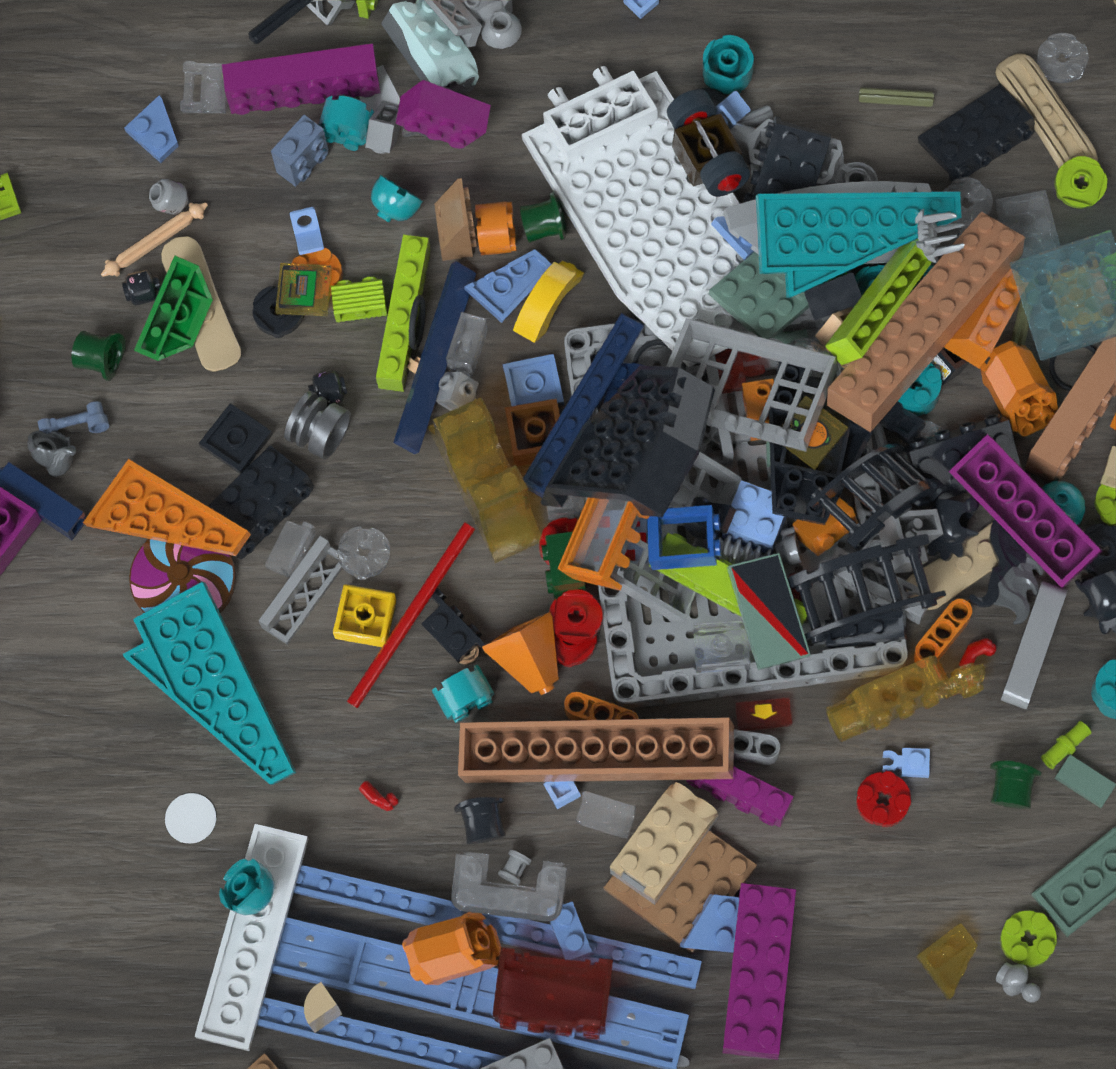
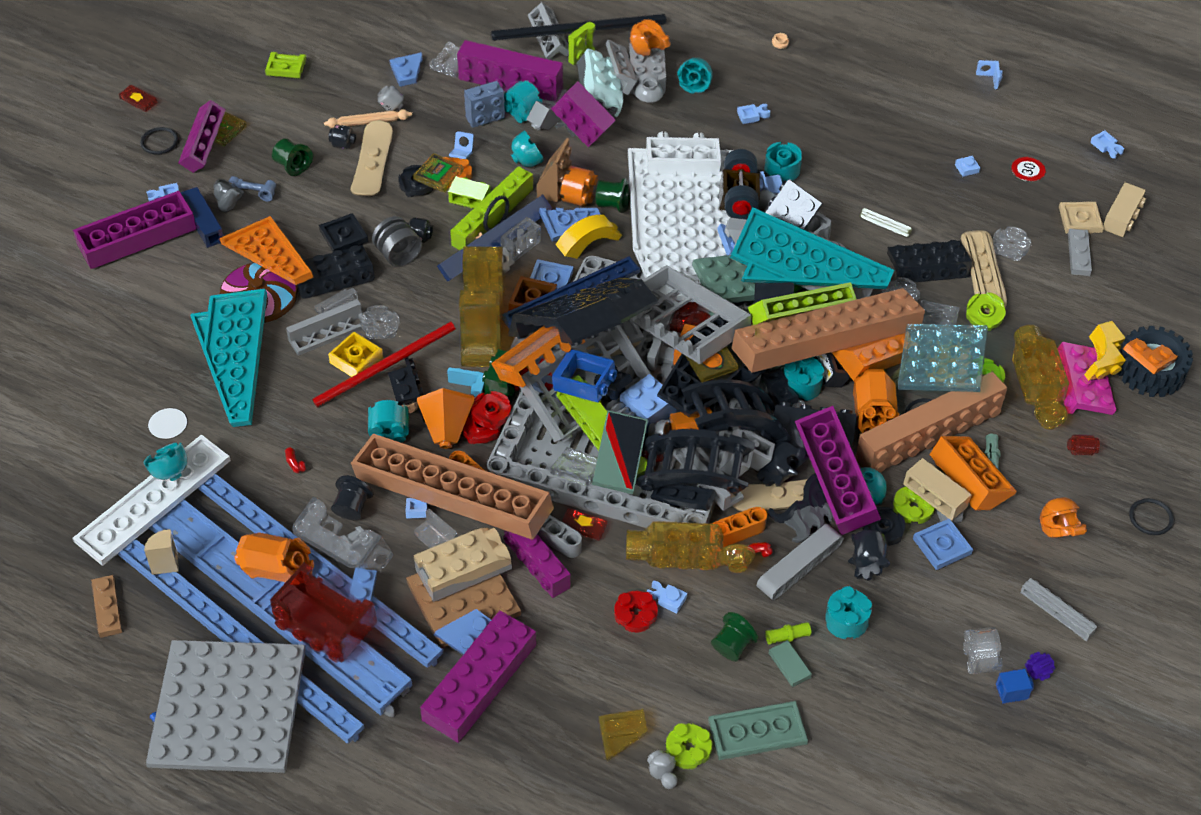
camera: 20 degrees right, 20 degrees down
(176, 312) = (352, 151): green wedge -> none
(526, 577) = (467, 378): none -> medium azure bracket
(928, 238) = (857, 274): light grey piece -> none

